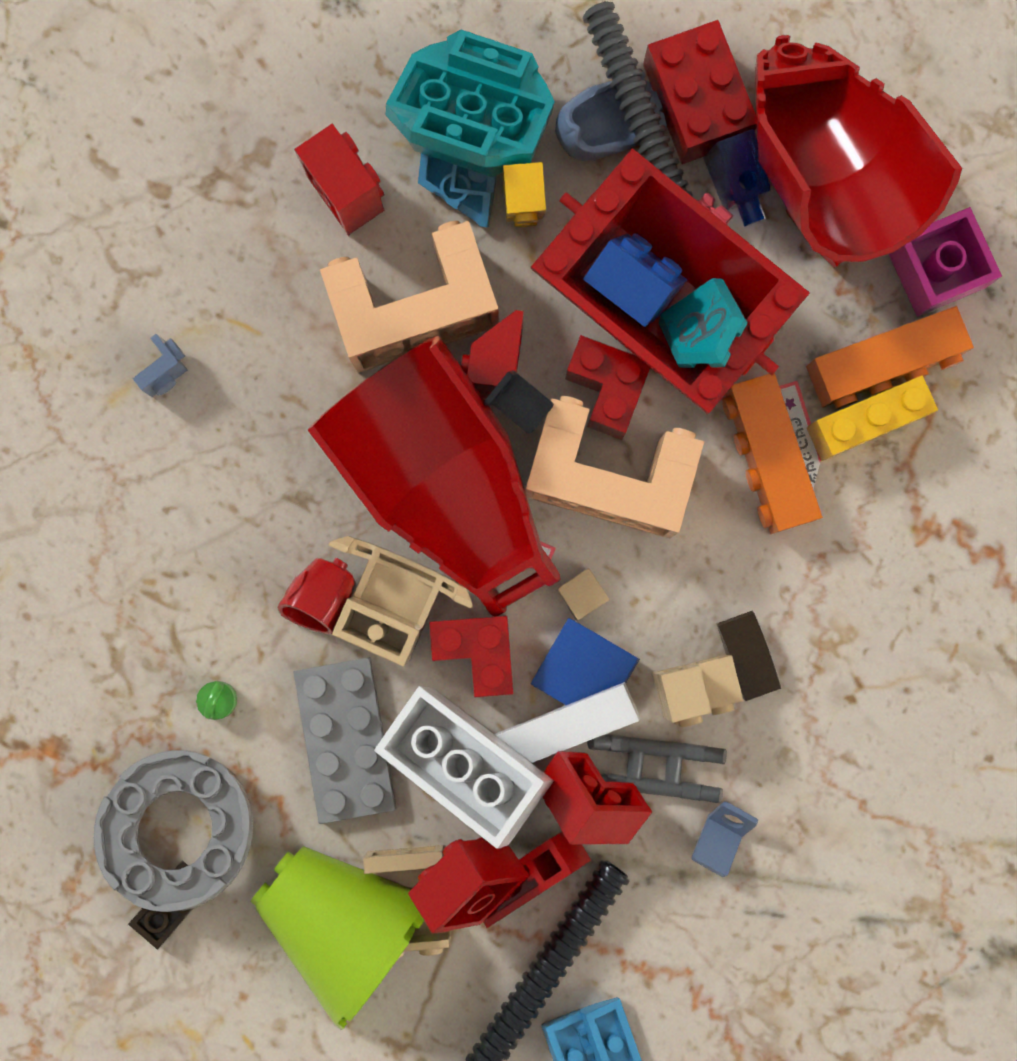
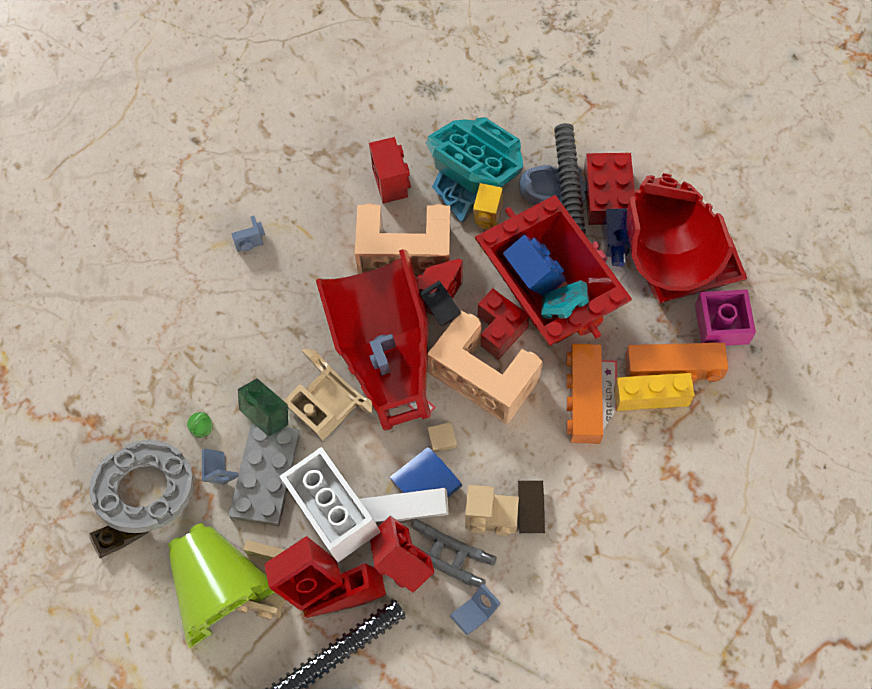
camera: 20 degrees right, 20 degrees down
(267, 760) = (214, 468): none -> sand blue bracket
(303, 648) = (263, 407): none -> clear green brick
(318, 595) = (286, 378): red helmet -> none
(447, 509) = (379, 346): none -> sand blue bracket
(485, 643) = (368, 441): red brick -> none

